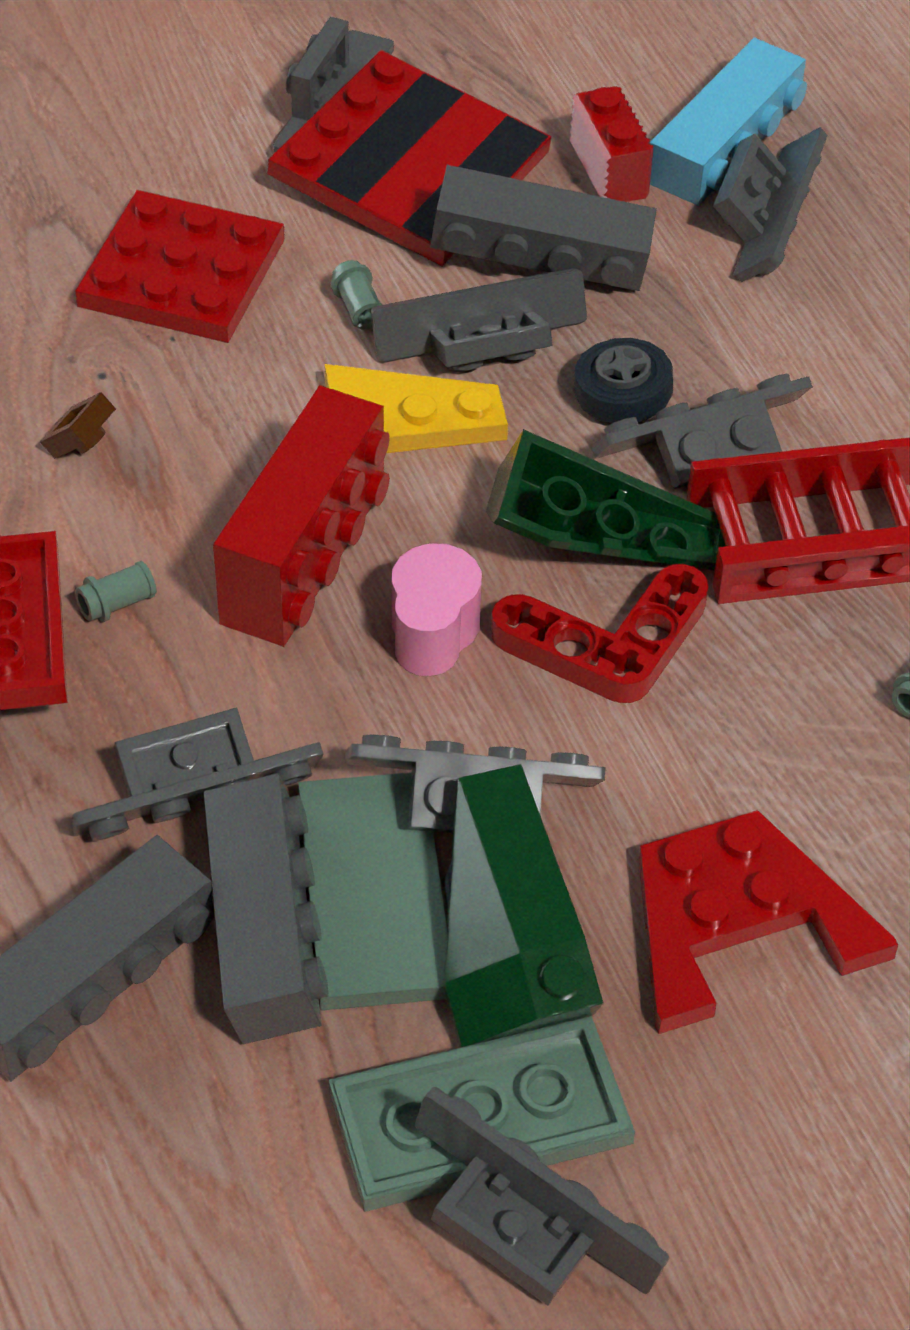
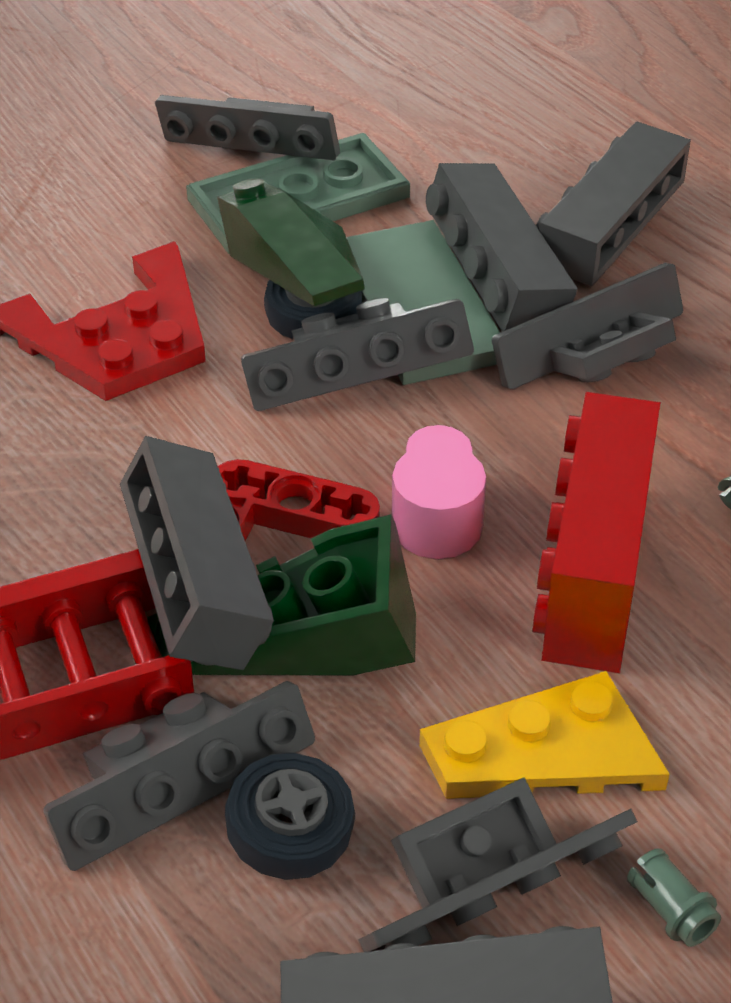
camera: 170 degrees right, 5 degrees down
(681, 525) = (194, 555): none -> dark grey brick

